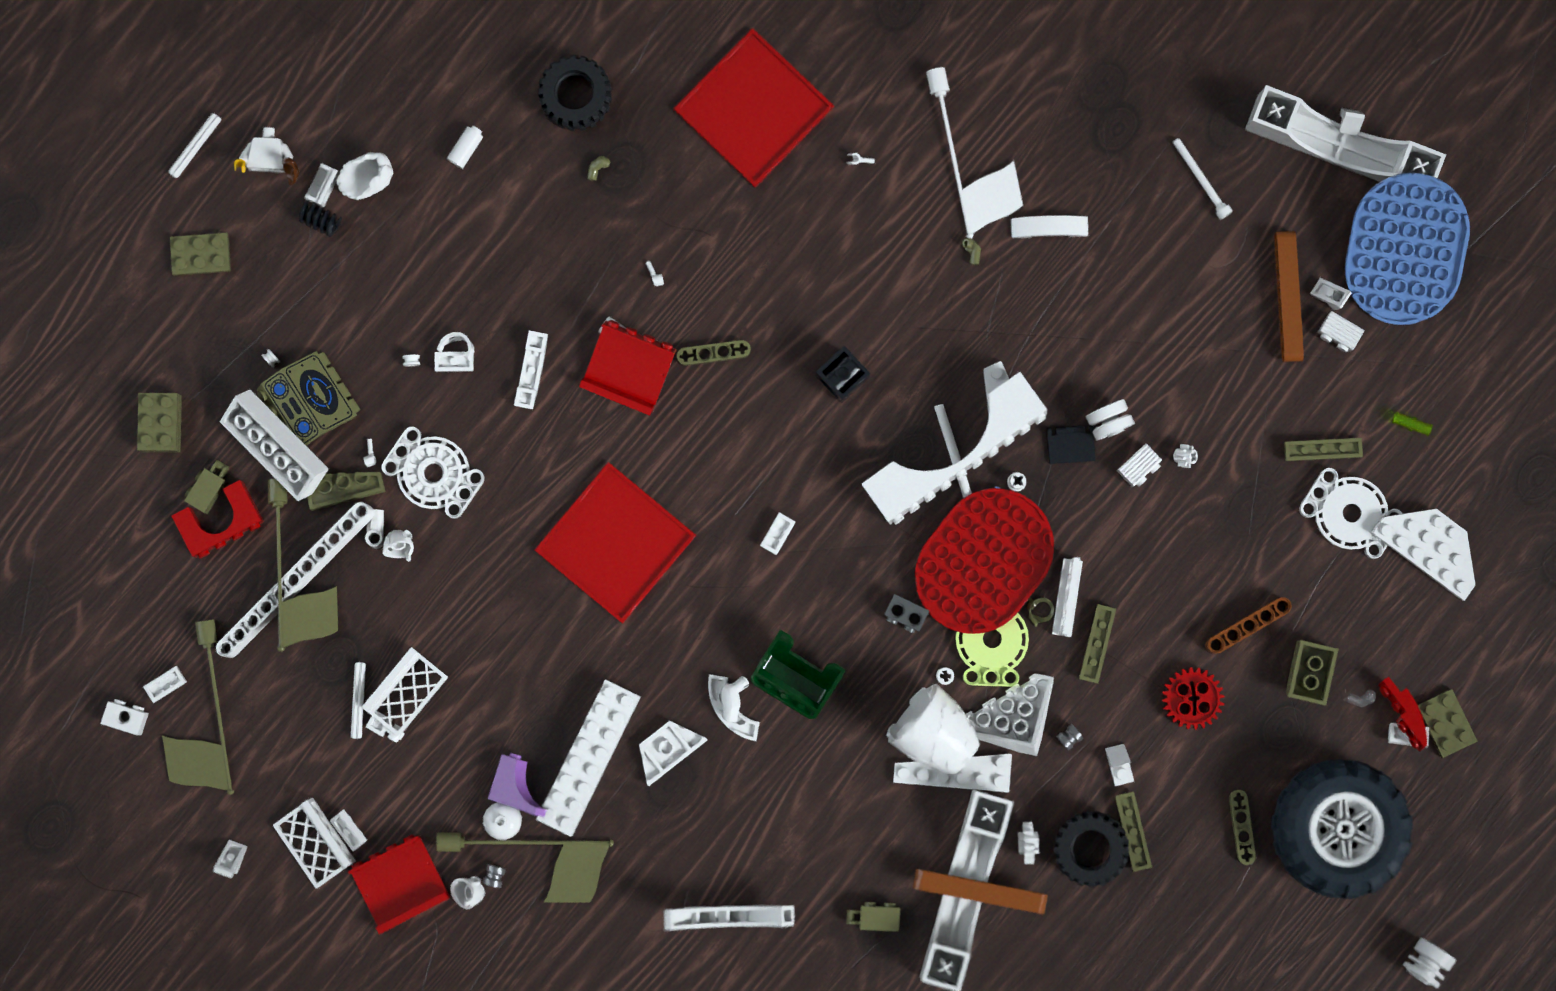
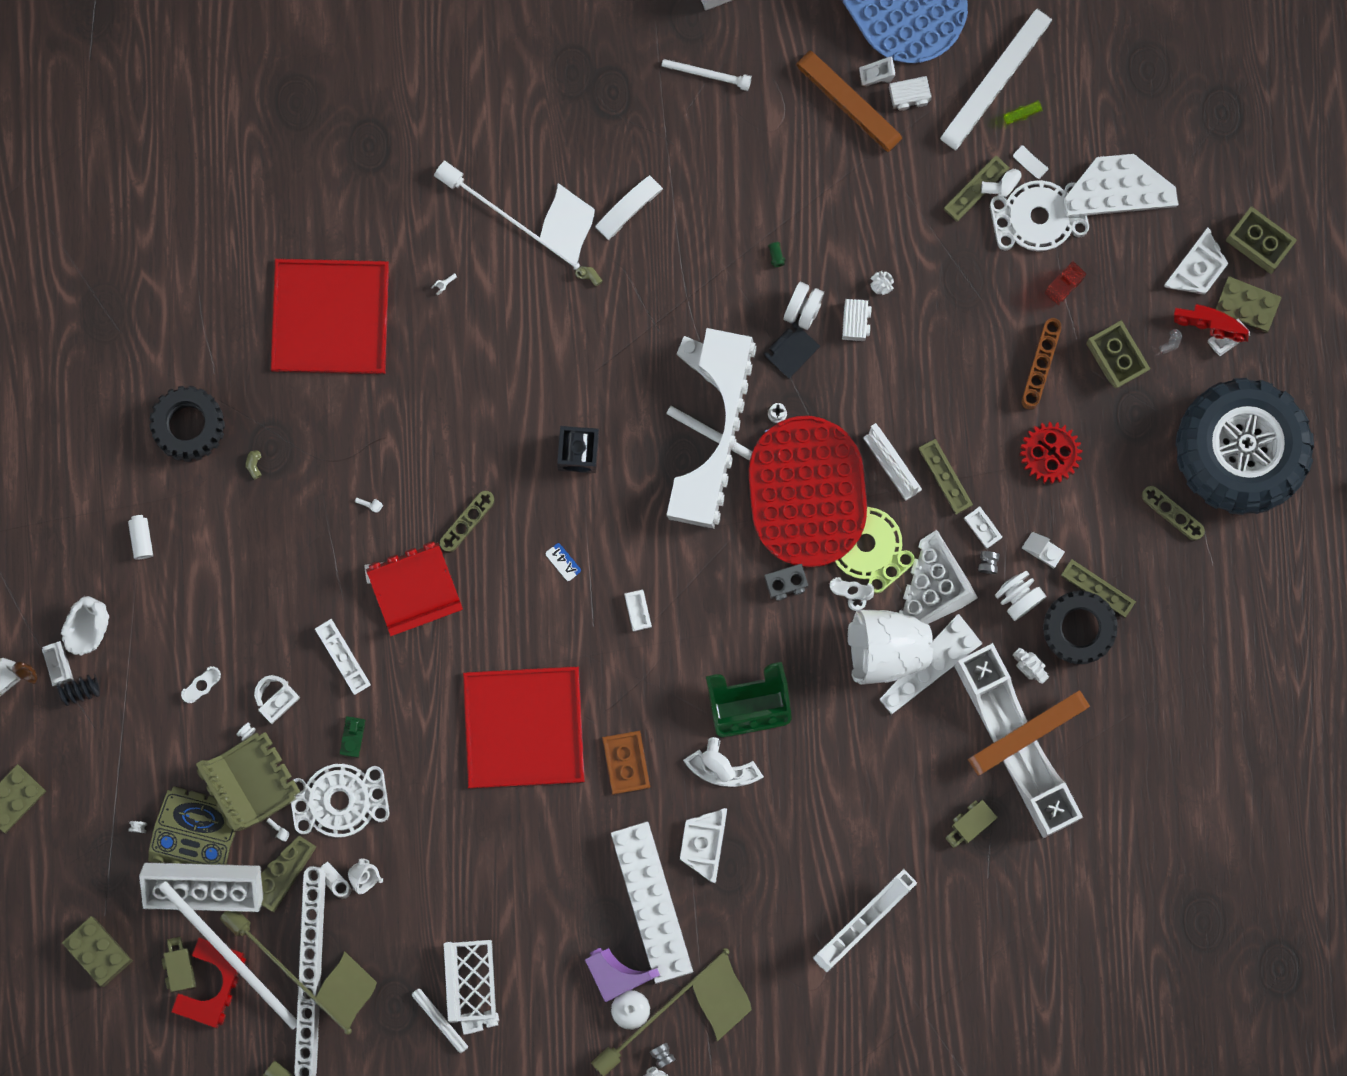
camera: 45 degrees left, 5 degrees down
(248, 512) = (228, 954): none -> white piece
(378, 399) = (248, 782): none -> olive hinge
(398, 296) = (192, 694): none -> white piece
(485, 435) = (352, 737): none -> dark green hinge
(665, 637) = (626, 762): none -> dark orange tile
(756, 447) = (563, 562): none -> sticker
(943, 654) = (841, 587): none -> white piece
(1036, 619) = (884, 500): olive piece -> none
(1069, 783) = (1020, 595): none -> white wheel
(1089, 707) = (983, 527): none -> white plate
(1126, 362) = (776, 255): none -> dark green pin
(1323, 582) = (1065, 283): none -> clear red brick
(1348, 467) = (1004, 186): none -> white arm
(1382, 466) = (1030, 162): none -> white sticker
(1416, 380) = (996, 79): none -> white beam
(1436, 662) = (1199, 267): none -> white wing
(1502, 685) = (1261, 240): none -> olive brick

